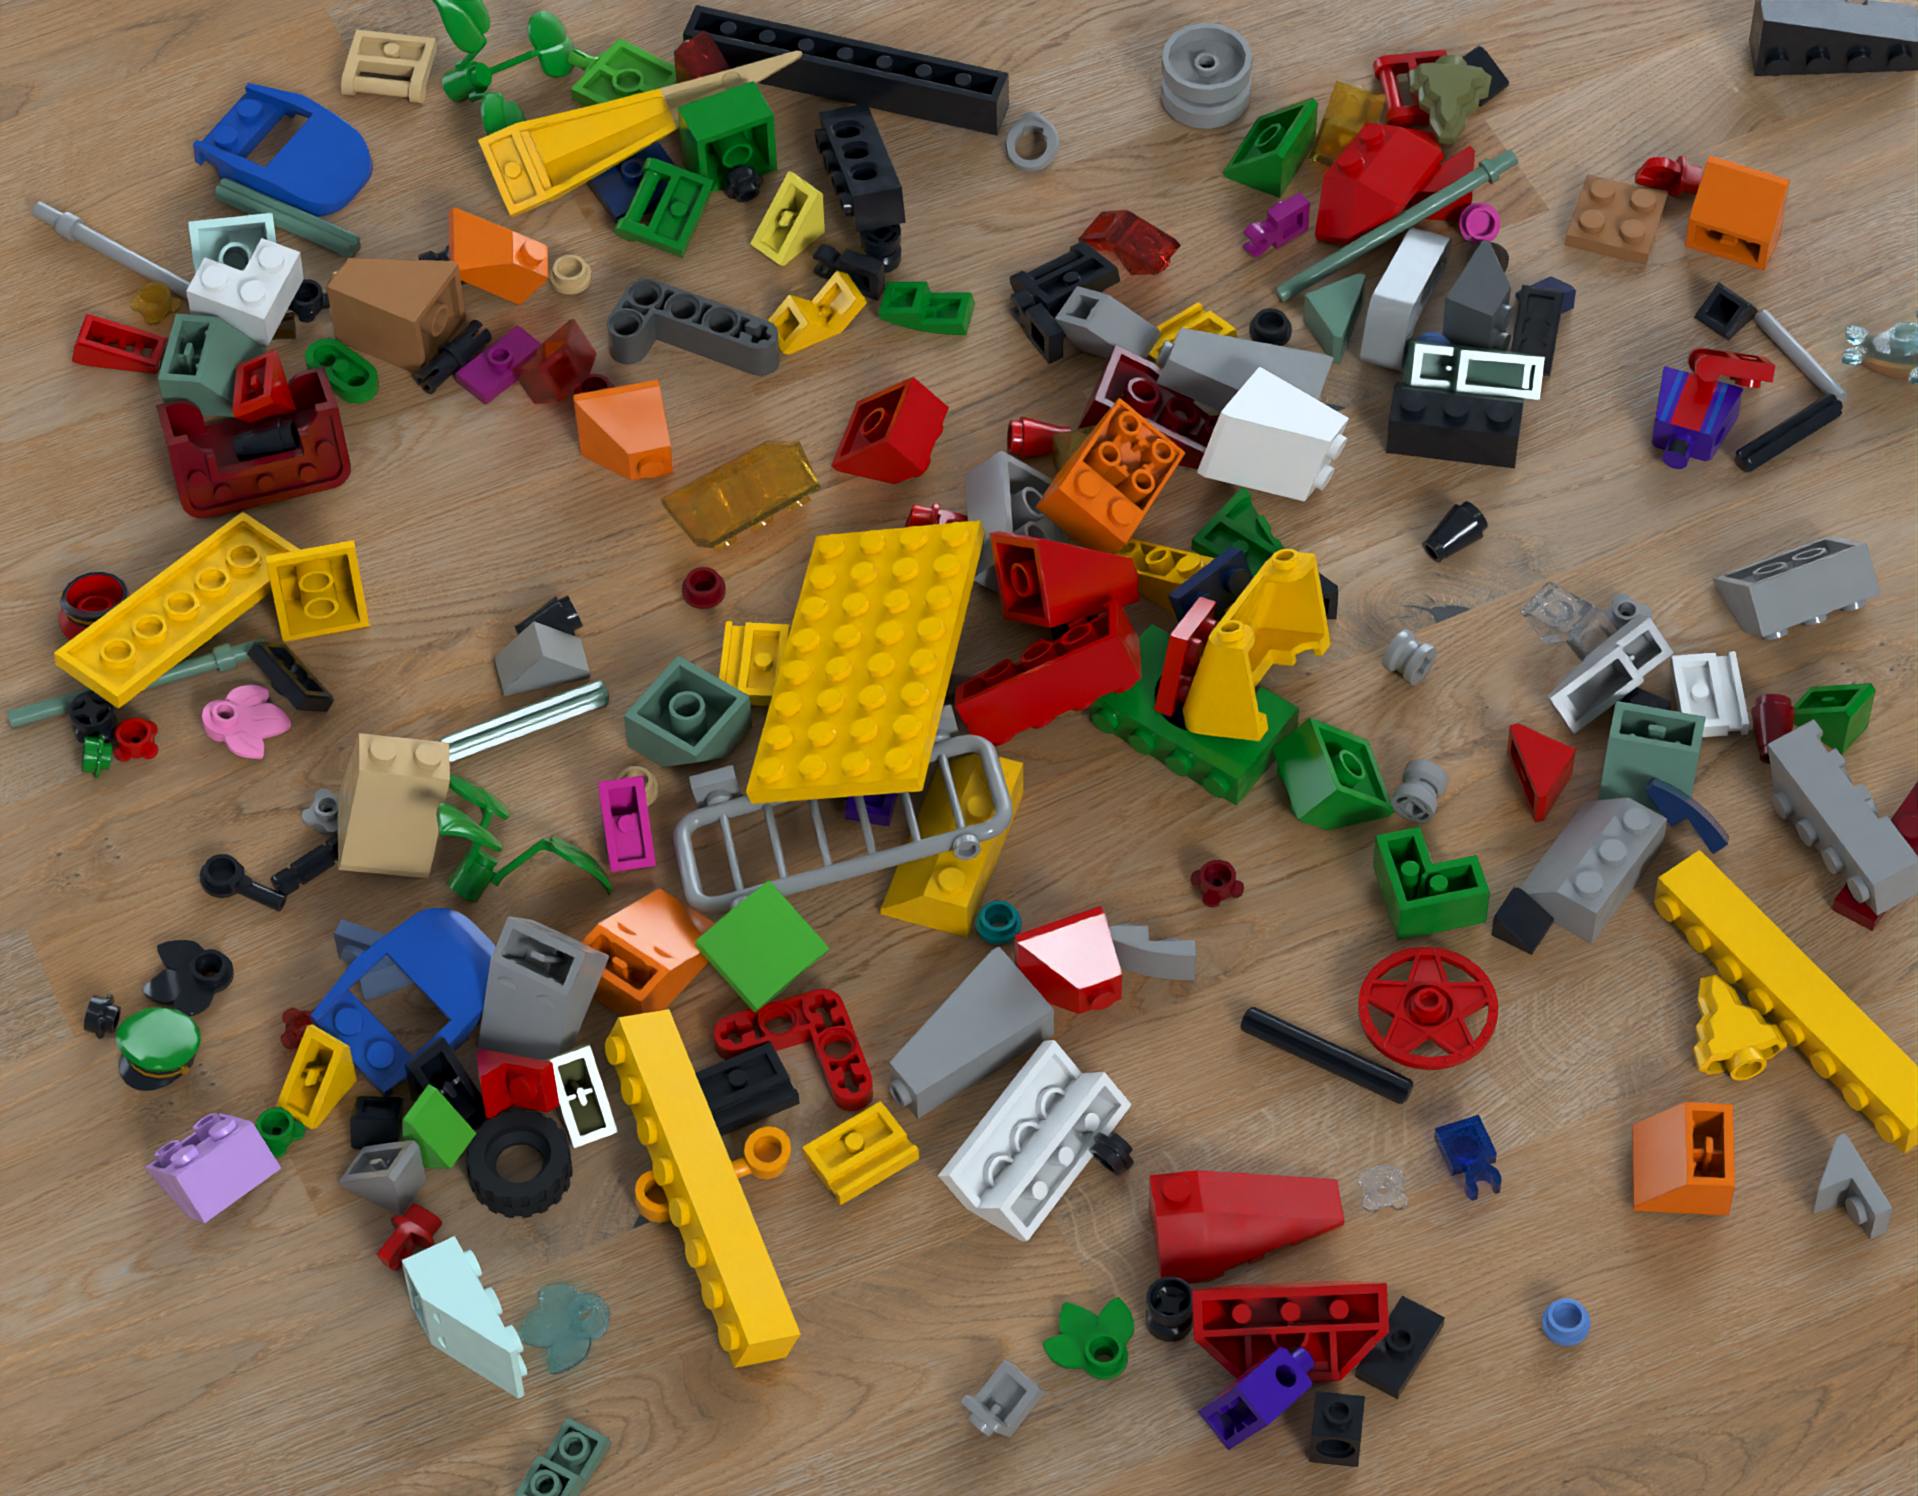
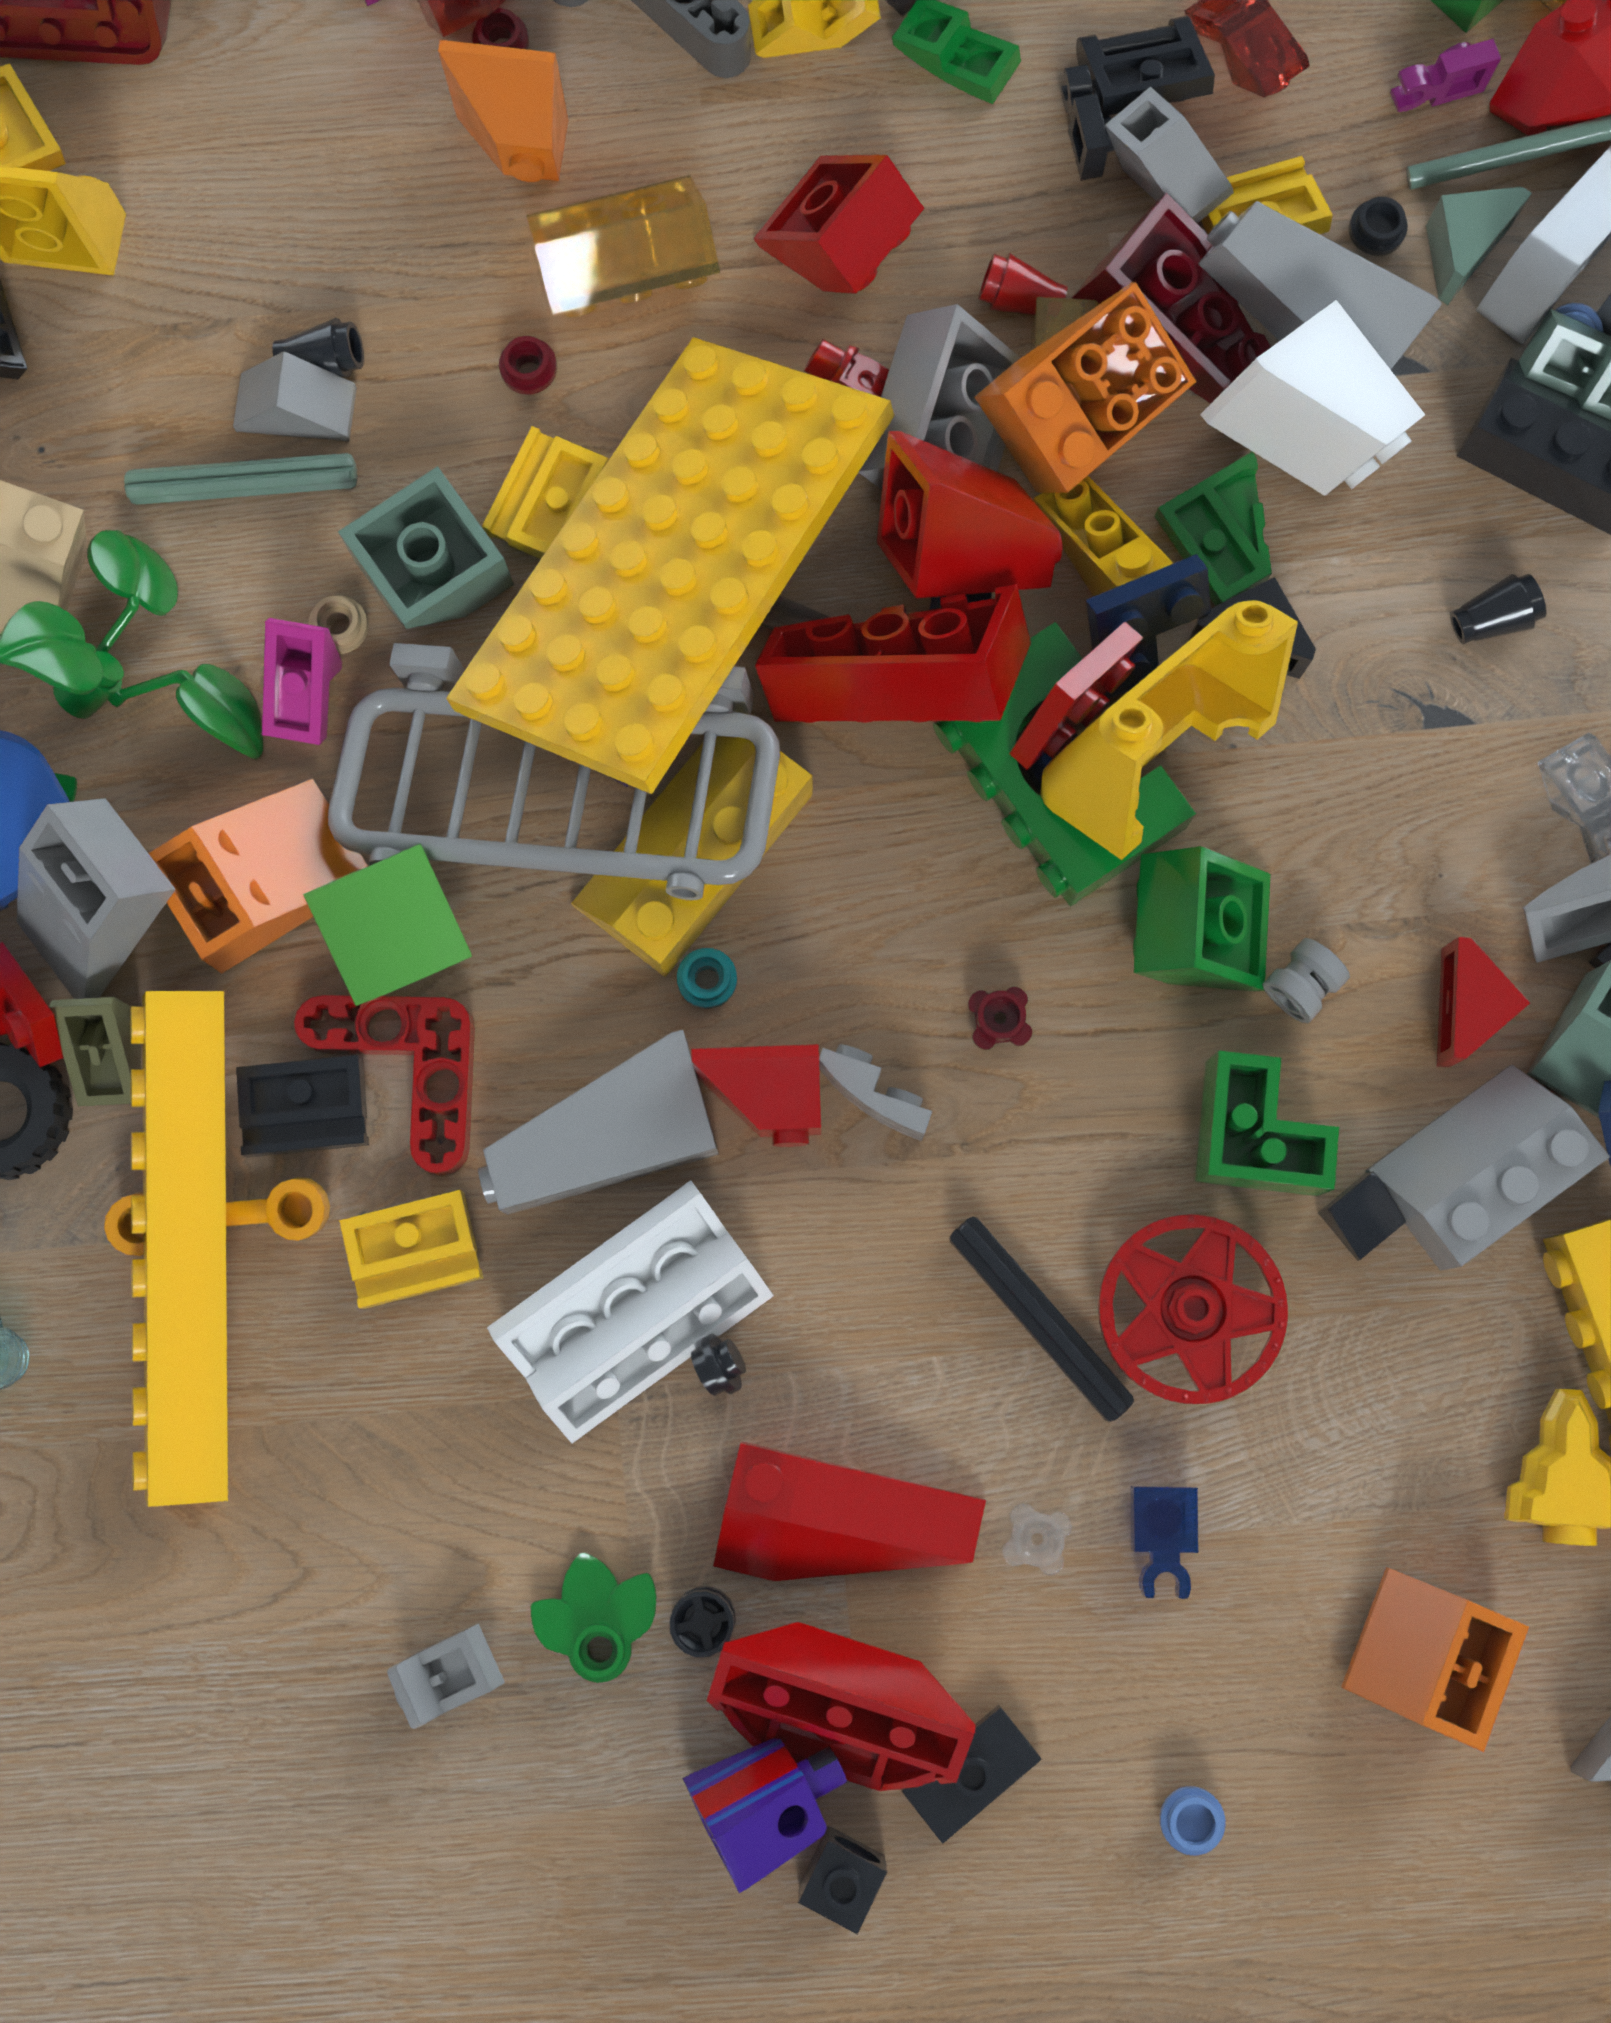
camera: 20 degrees right, 25 degrees up
(1409, 657) = (1369, 777): light grey wheel -> none

